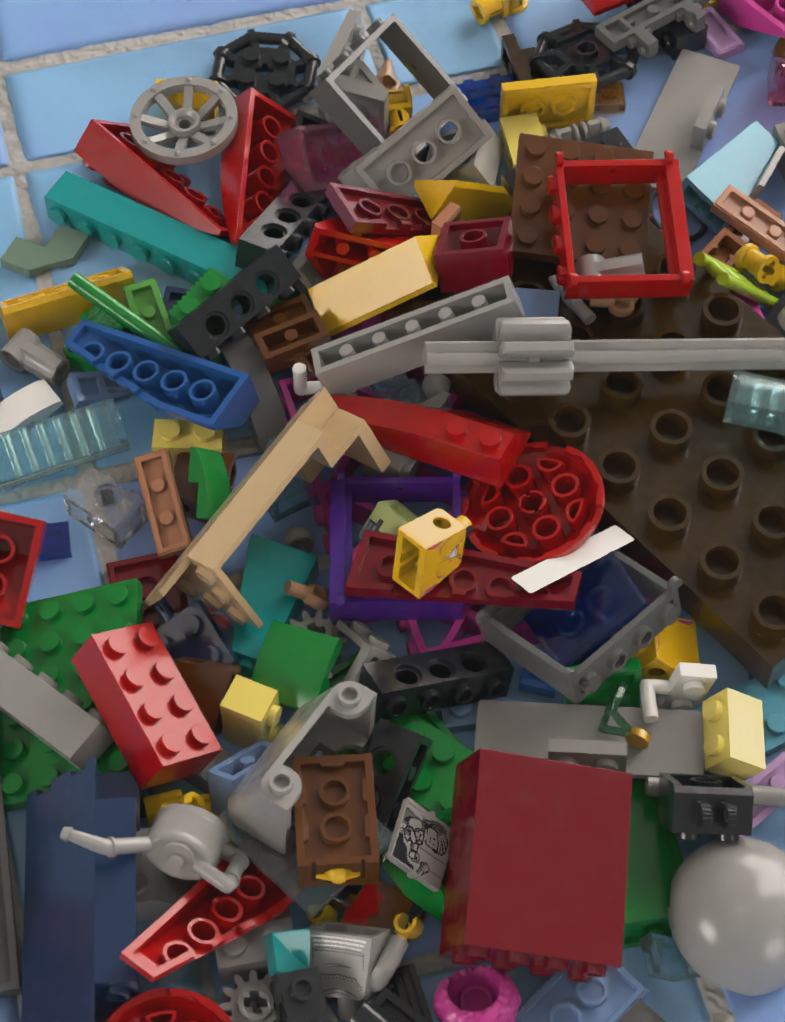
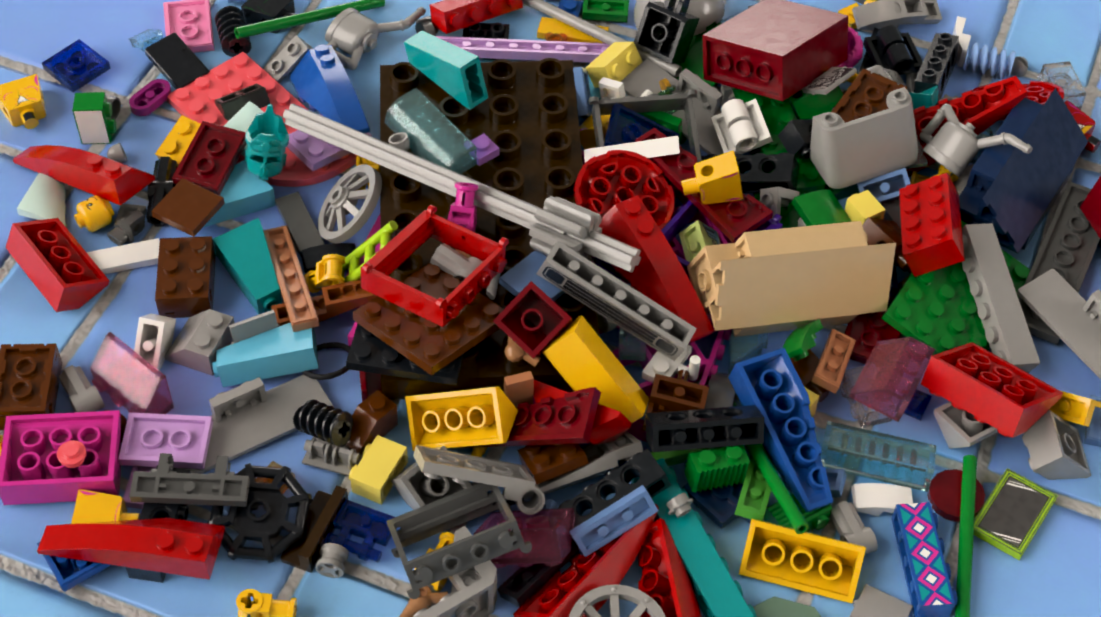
camera: 145 degrees left, 5 degrees down
(83, 509) = (892, 375): none -> clear pink slope
(211, 249) = (679, 505): none -> light grey plate
(261, 197) = (613, 521): none -> medium blue plate
(486, 723) = (741, 126): none -> white plate
(487, 59) = (332, 560): none -> light grey wheel
(555, 99) = (328, 472): yellow tile -> none
(590, 124) = (324, 422): none -> black piece
(667, 323) = (462, 210): none -> dark pink connector
(727, 52) = (180, 435): none -> lavender plate
(733, 434) = (485, 149): none -> medium lavender plate
(733, 654) = (582, 92): none -> medium blue tile

